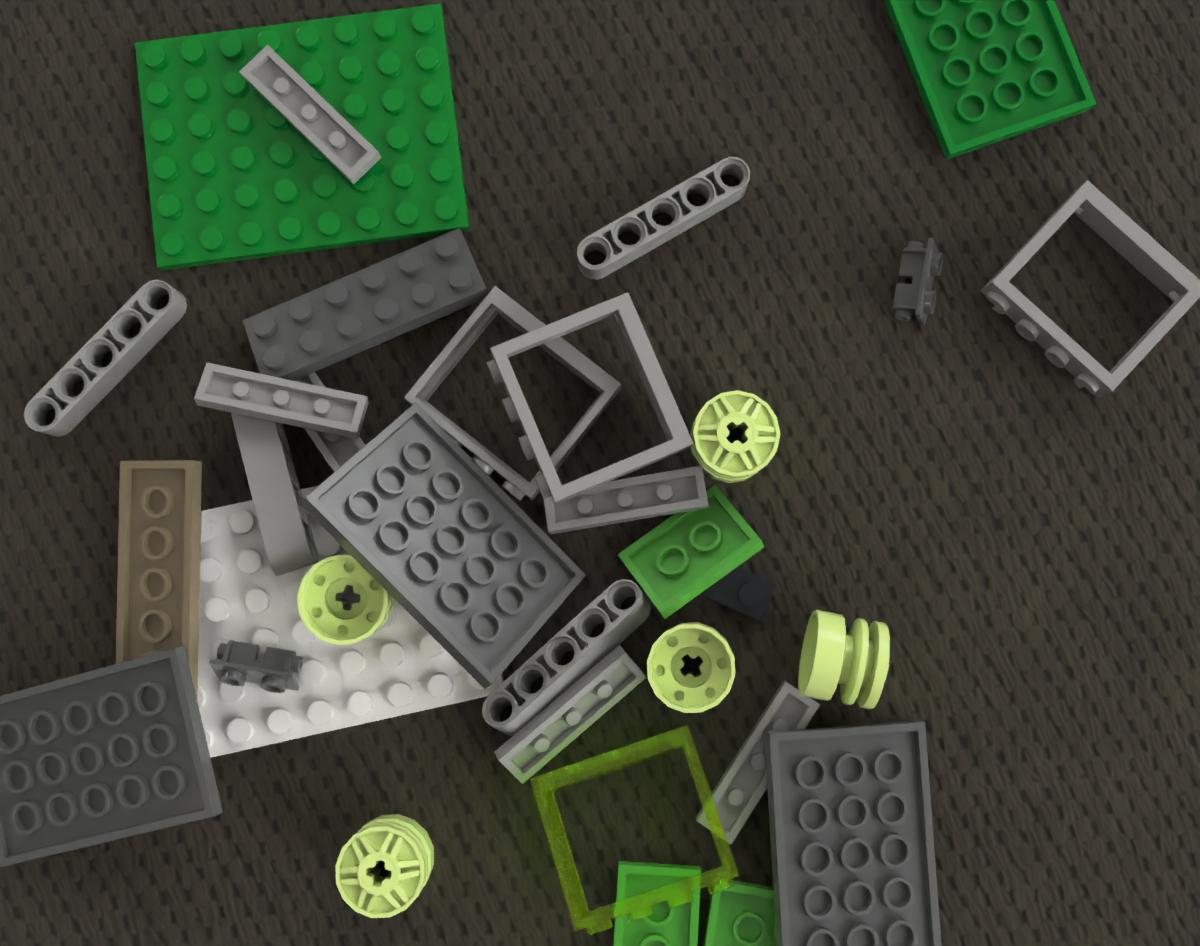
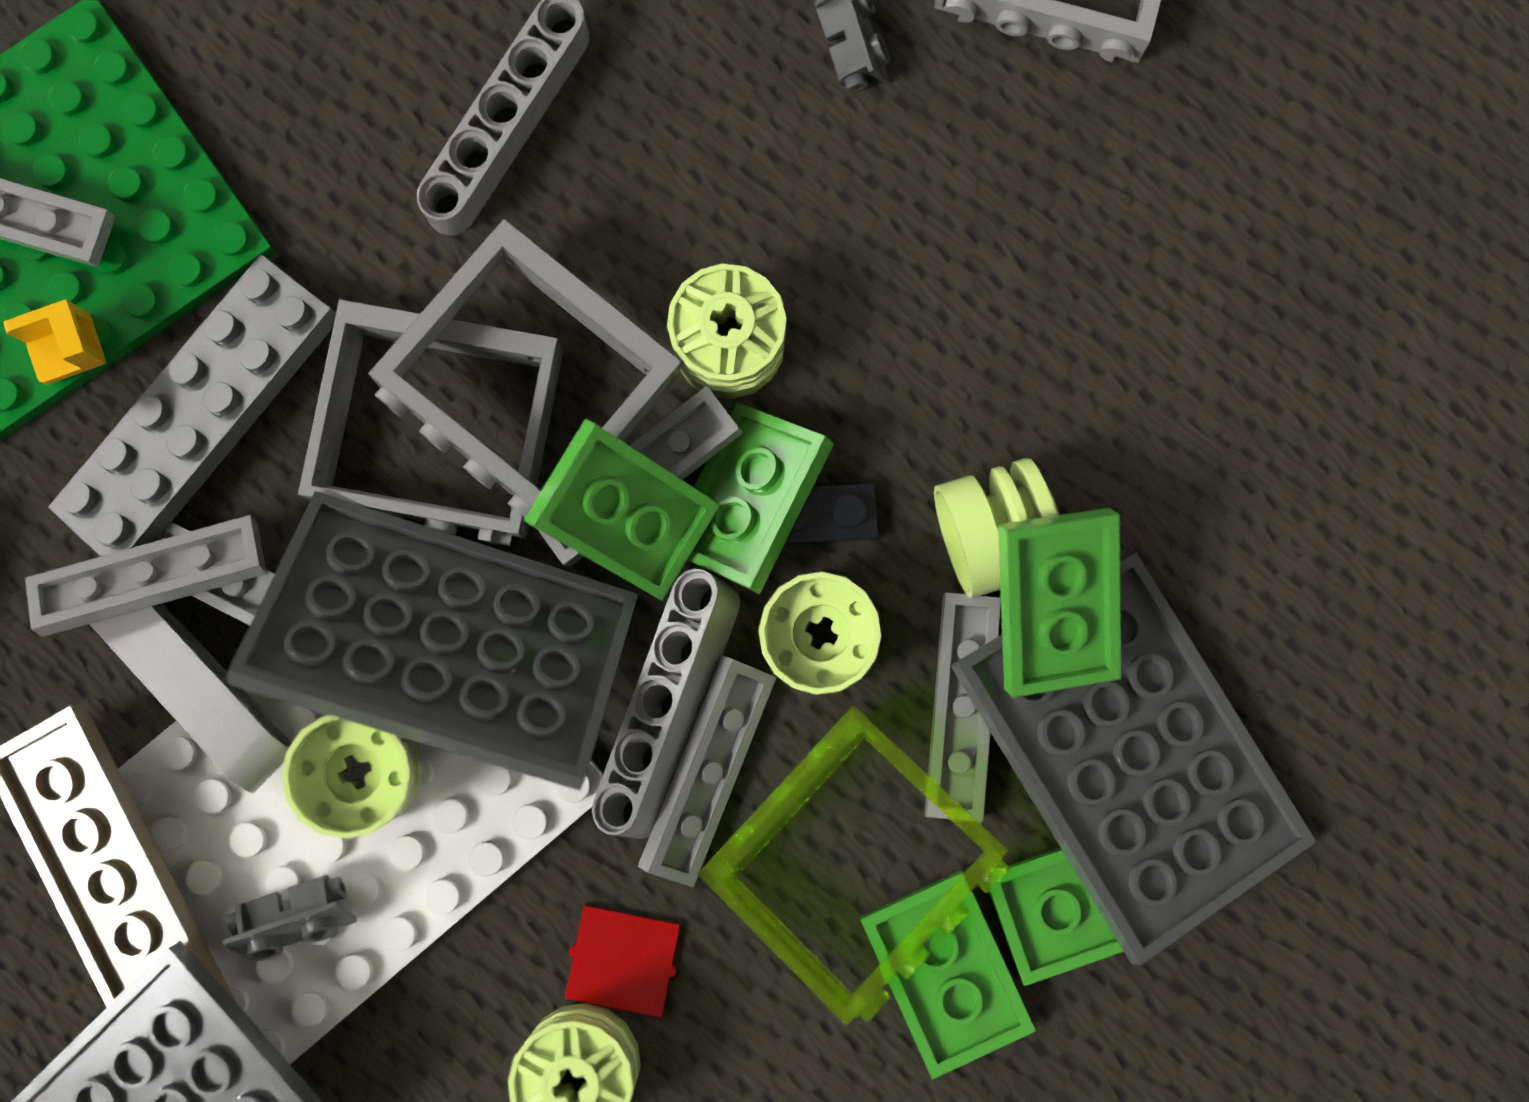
camera: 30 degrees left, 0 degrees up
(304, 220) = (58, 340): none -> yellow panel
(452, 806) = (622, 961): none -> red piece
(605, 520) = (622, 510): none -> bright green plate
(858, 732) = (1060, 601): none -> bright green plate

